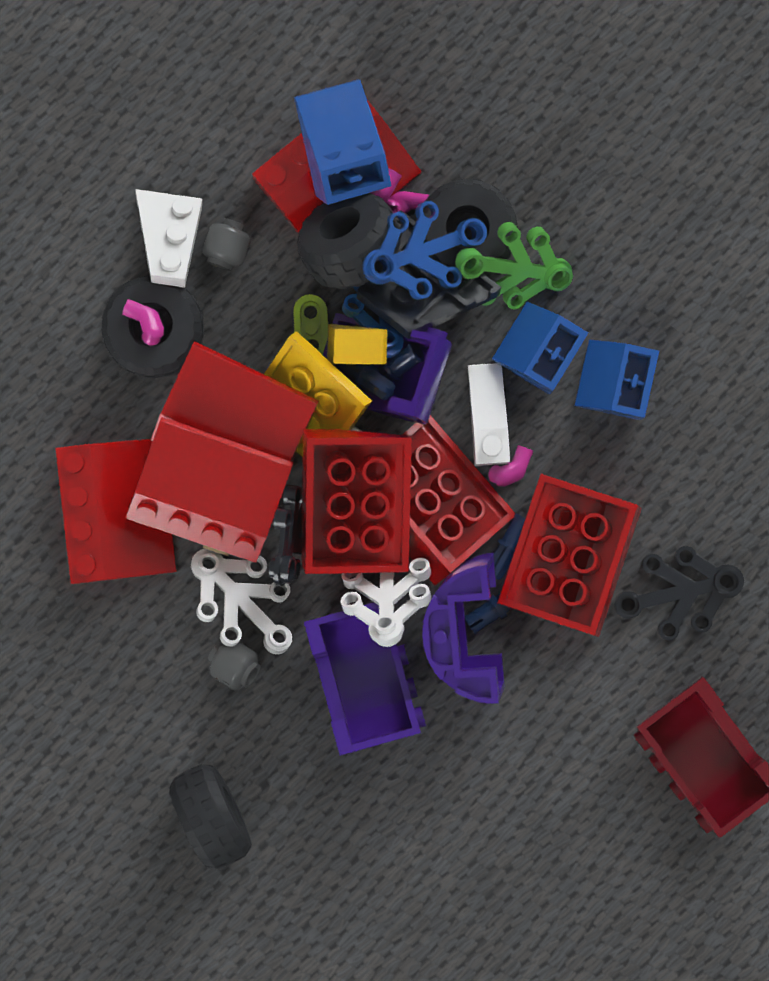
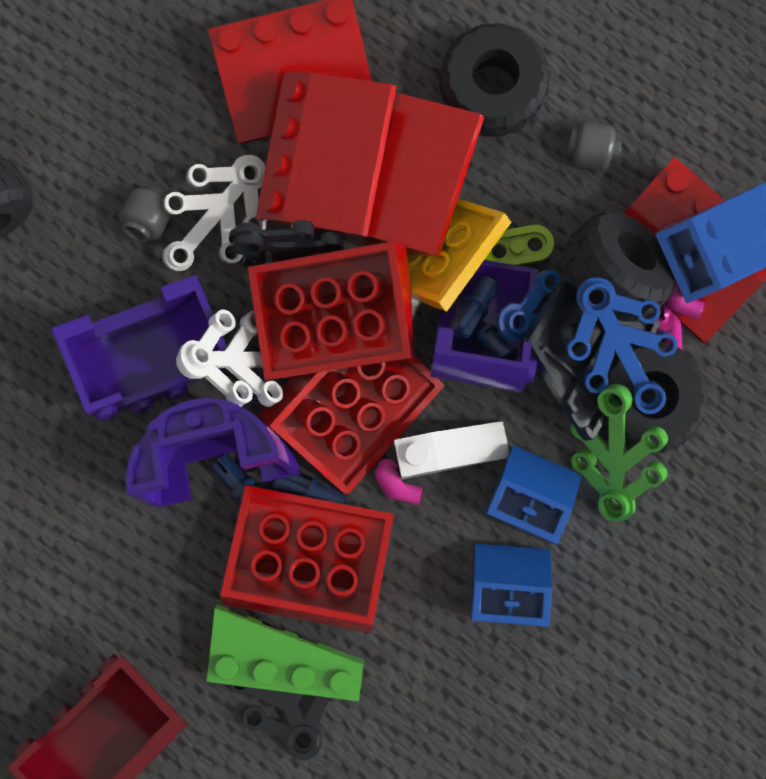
camera: 80 degrees right, 5 degrees down
(149, 321) = (498, 67): dark pink arm -> none
(169, 234) = (594, 82): white wing -> none
(356, 345) = (505, 290): yellow slope -> none
(653, 601) = (276, 660): none -> bright green wing

